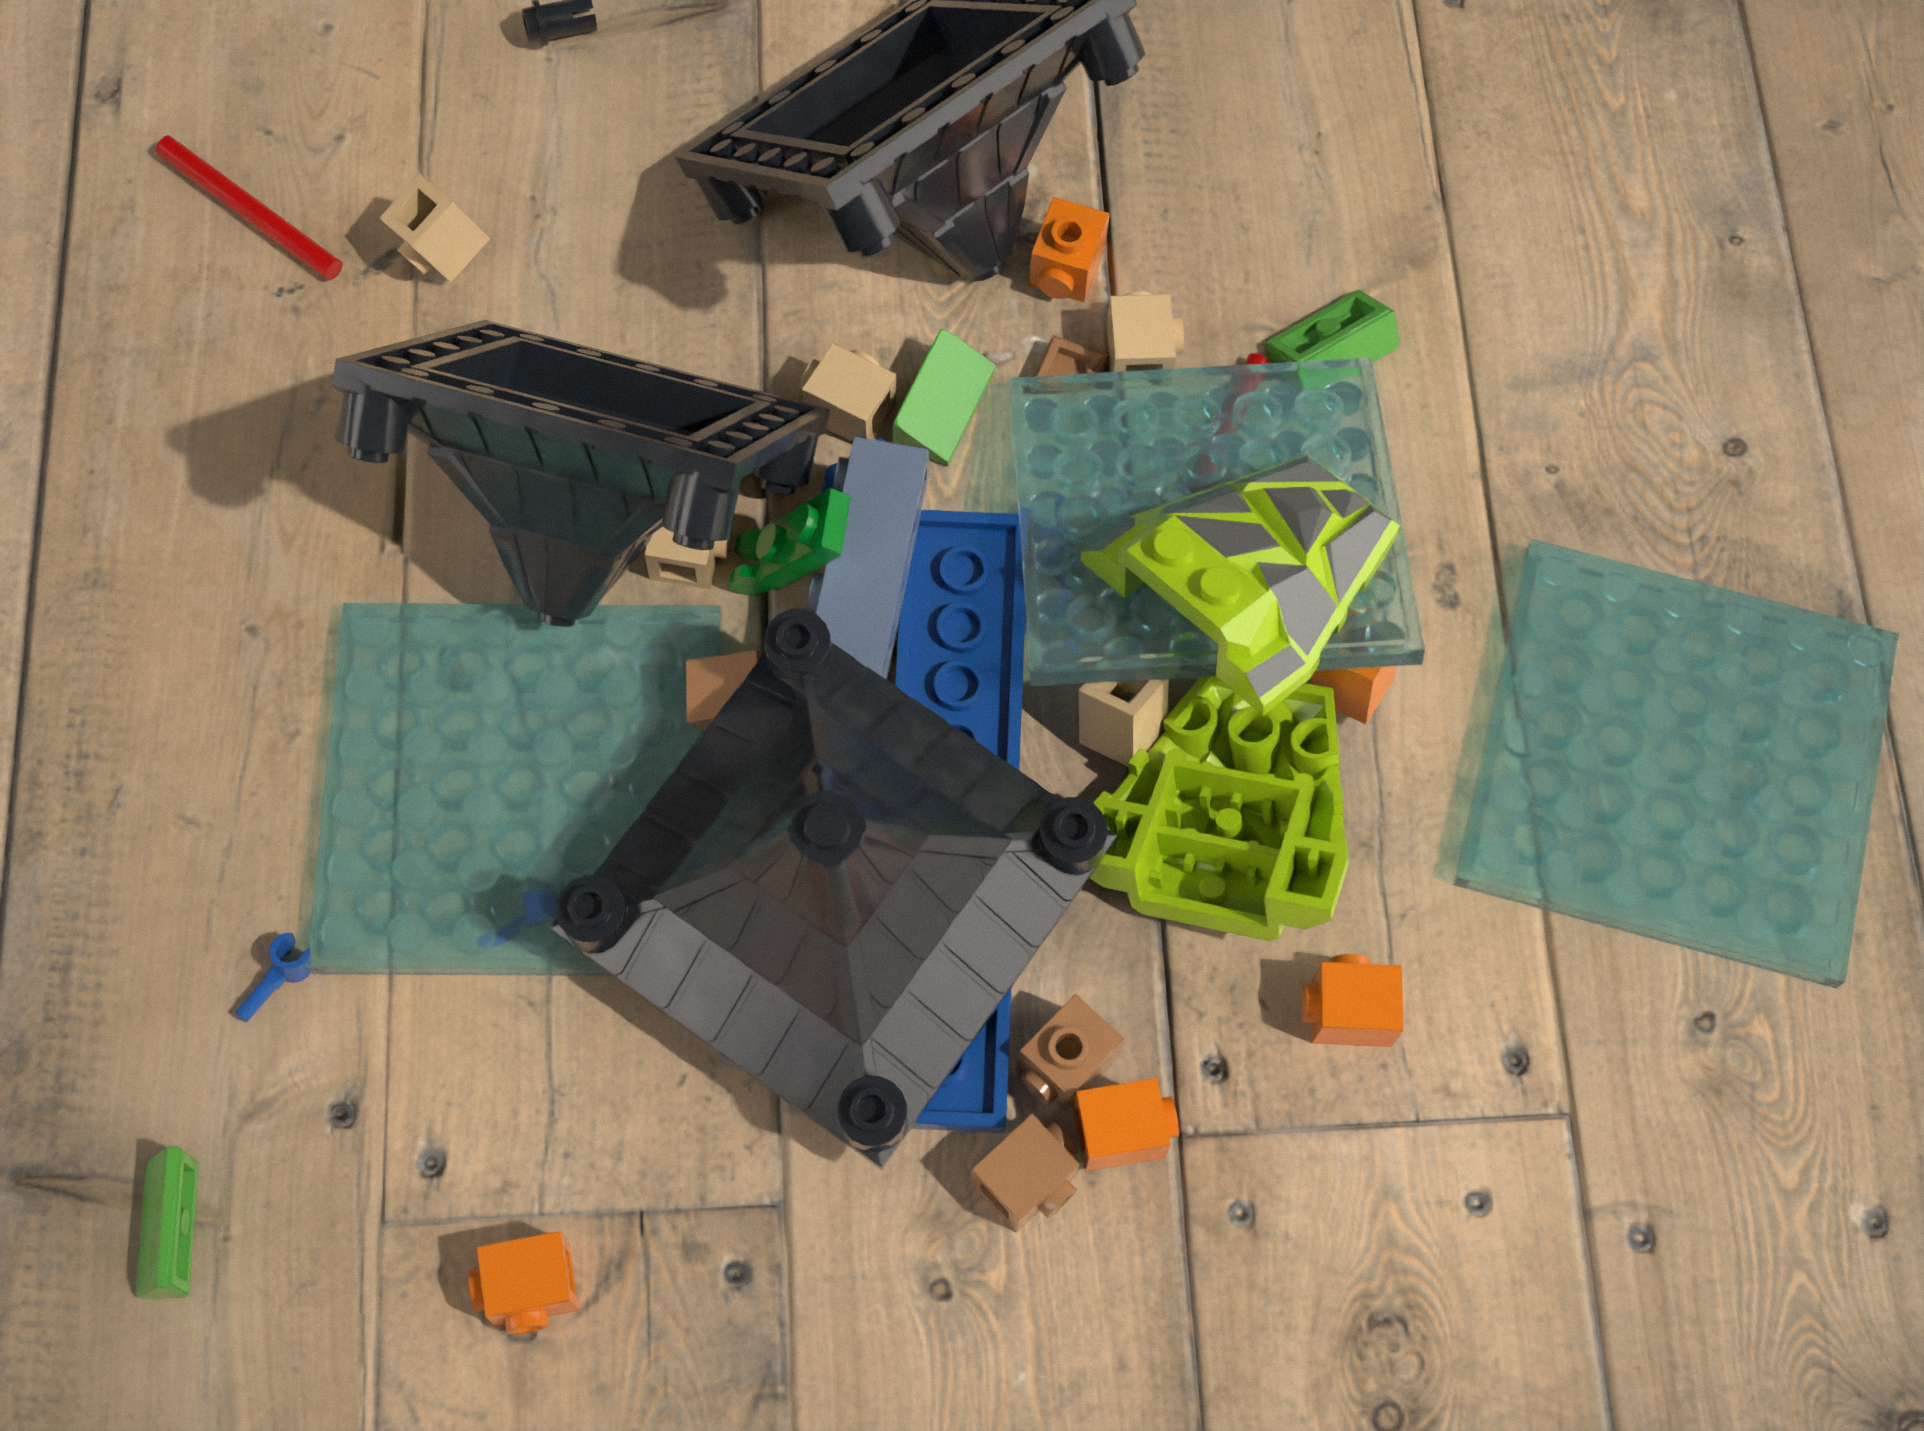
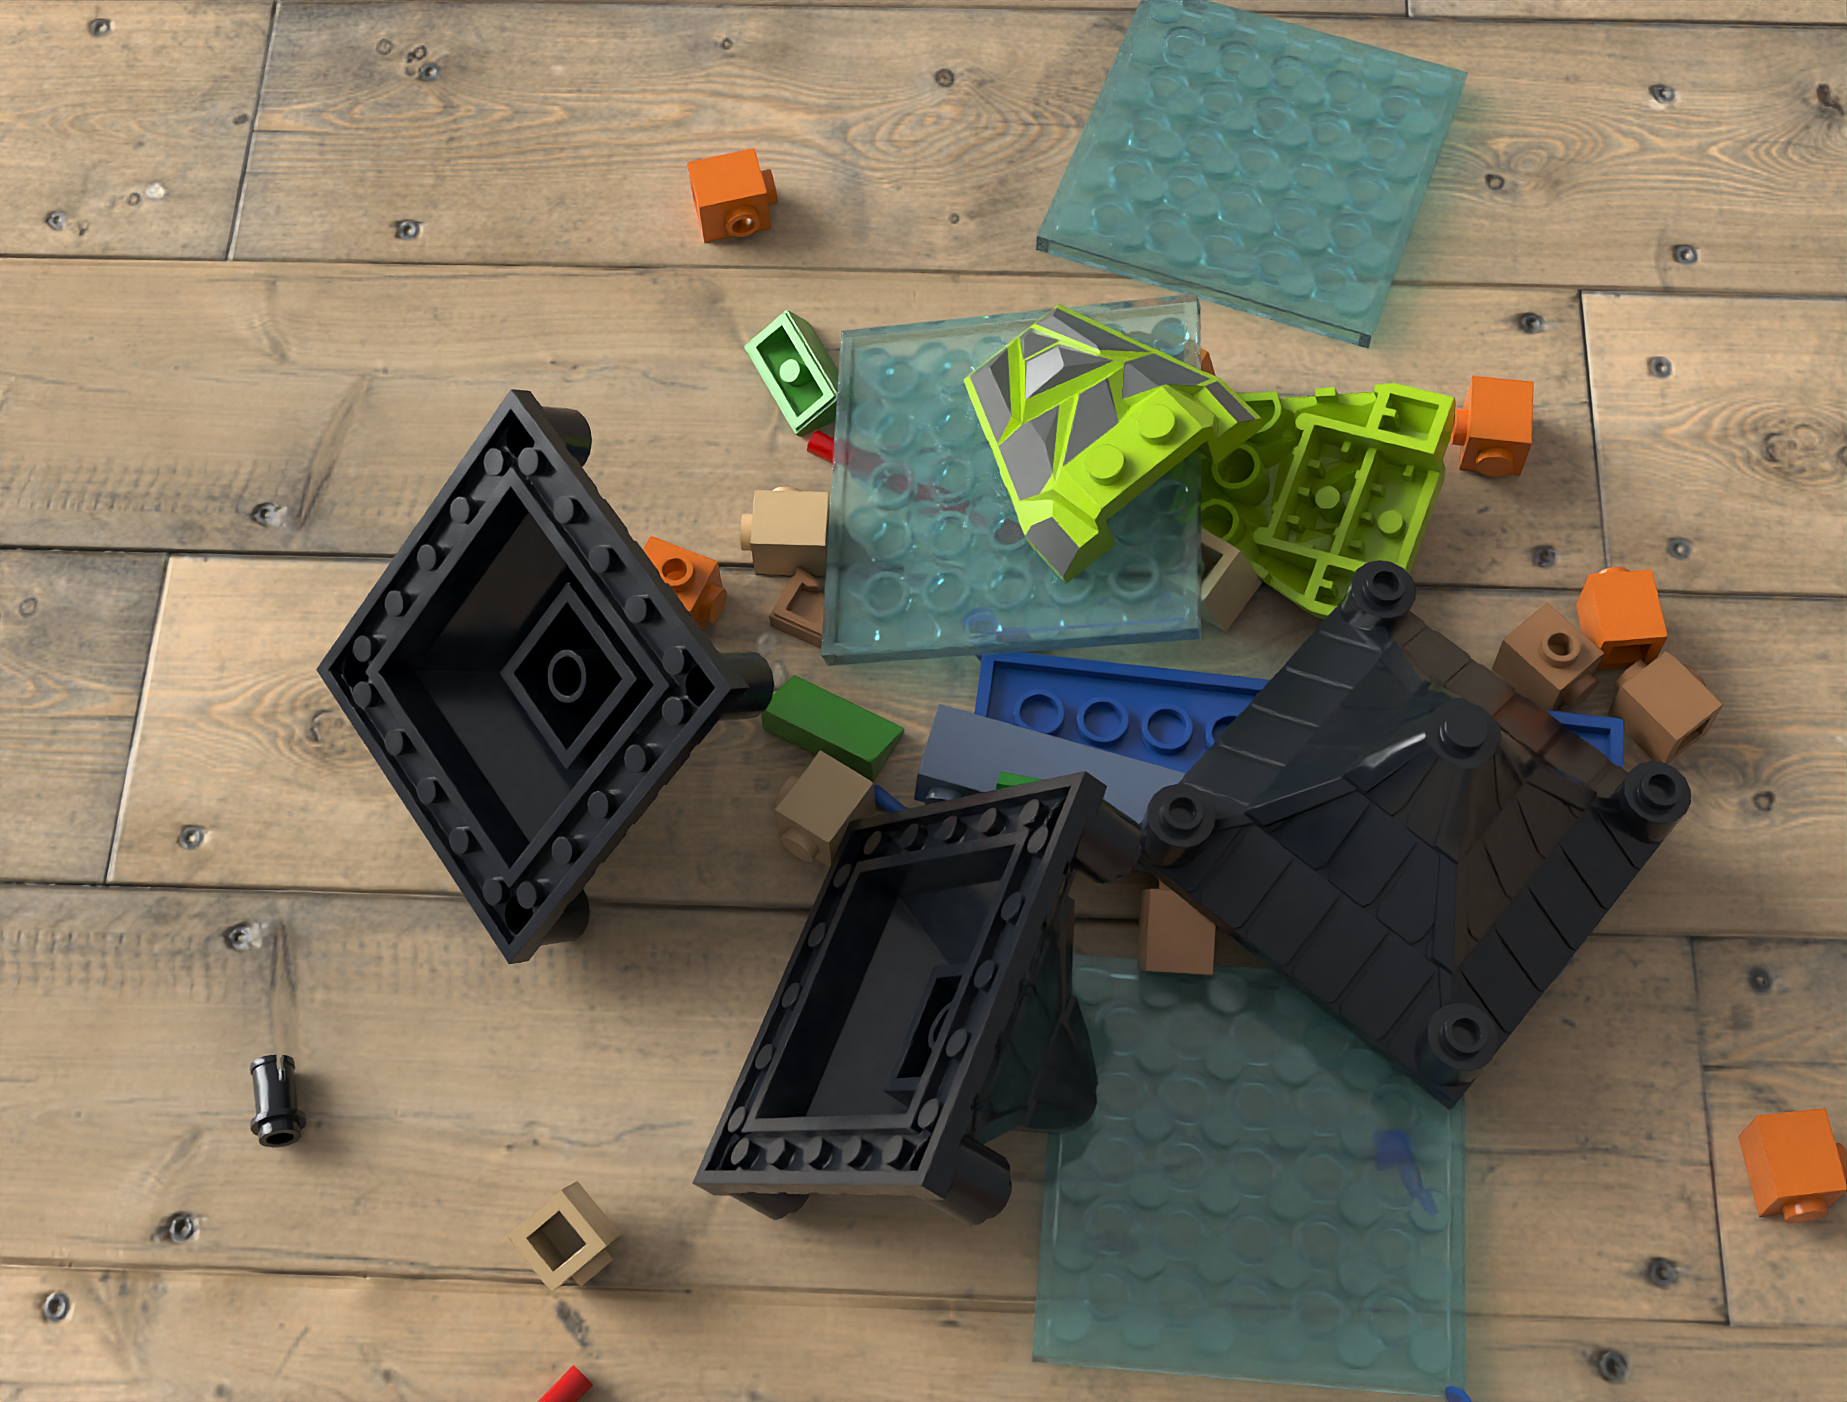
camera: 80 degrees left, 5 degrees down
(1528, 251) = (731, 195): none -> orange brick

